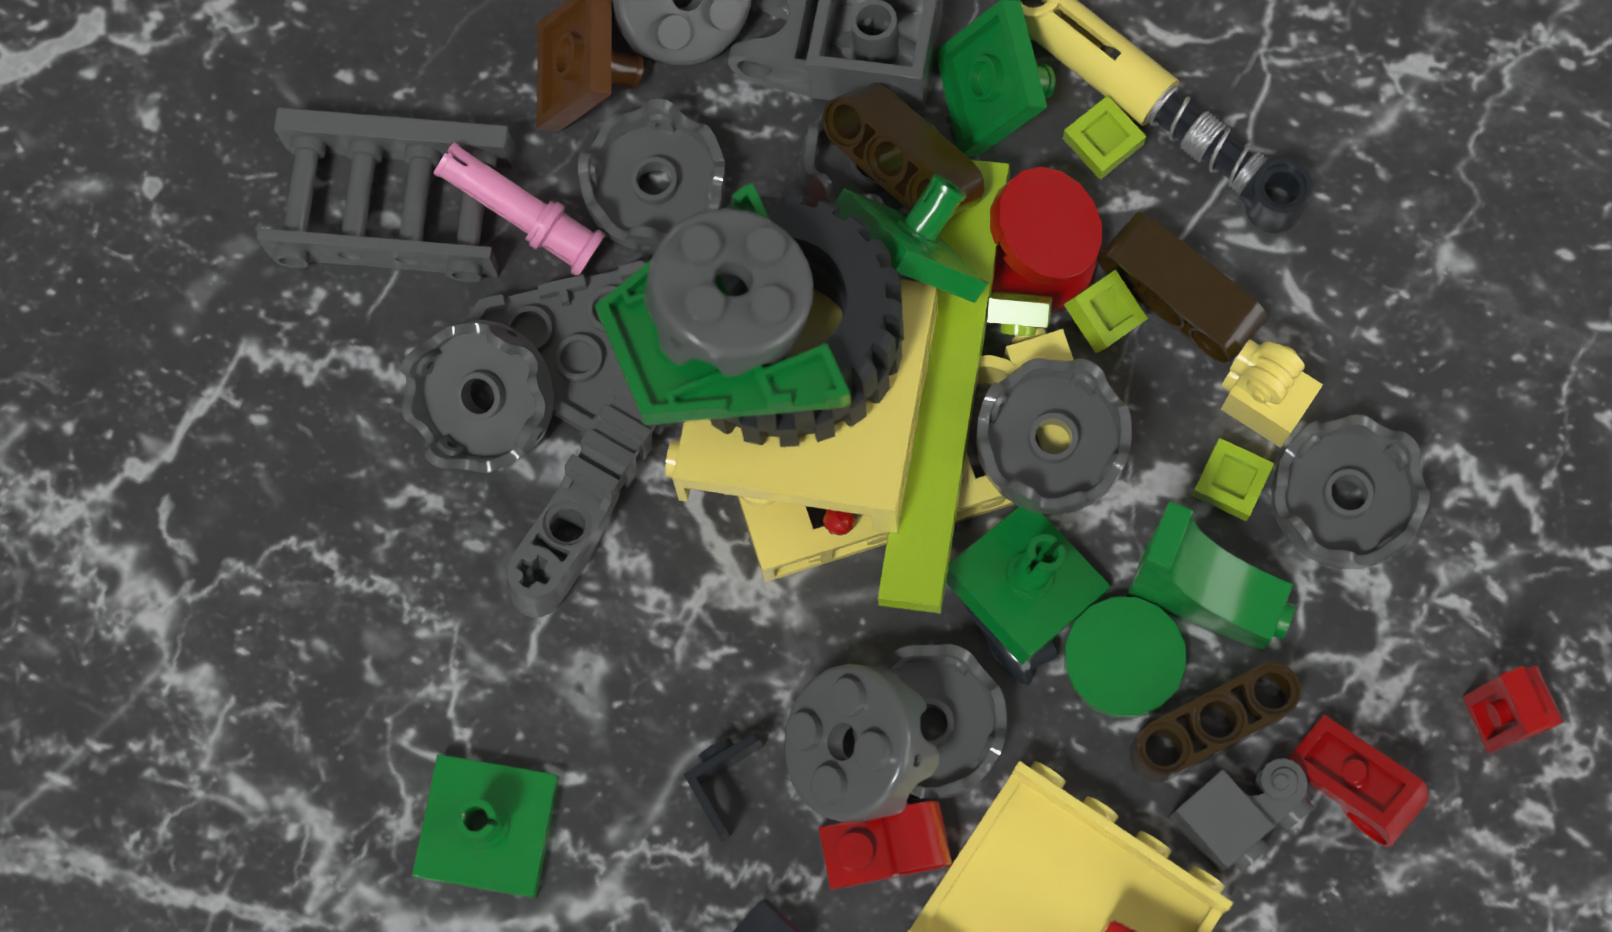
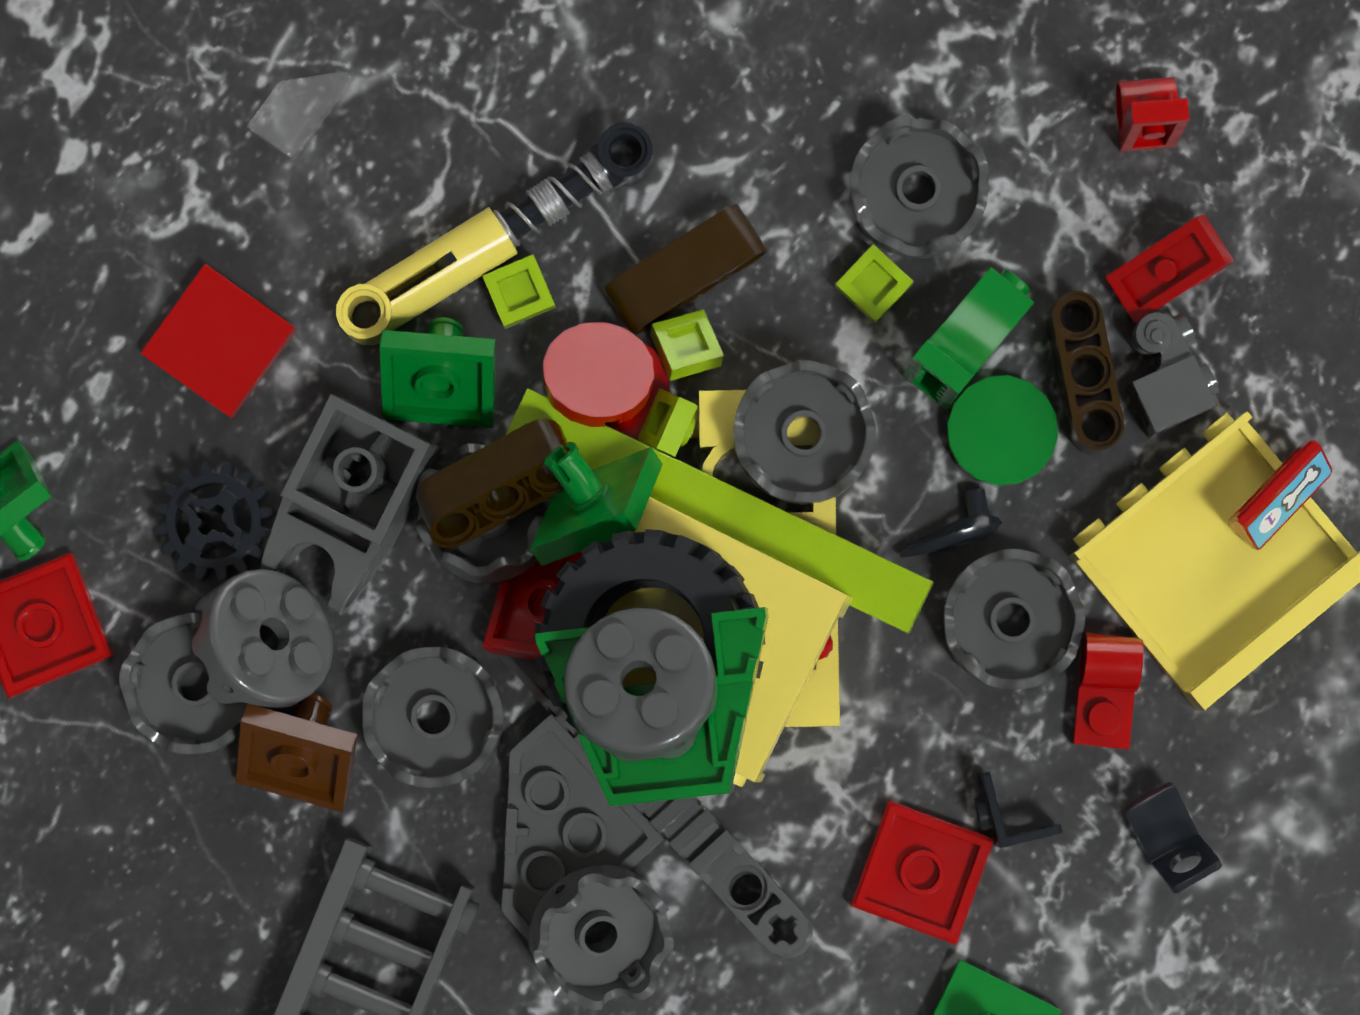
camera: 75 degrees left, 10 degrees up
(544, 223) = (447, 831): bright pink pin -> none
(637, 710) = (922, 872): none -> red tile
(888, 749) = (1019, 658): dark grey plate -> none
(1025, 582) = (915, 497): green tile -> none
(1269, 390) = (808, 226): light yellow brick -> none

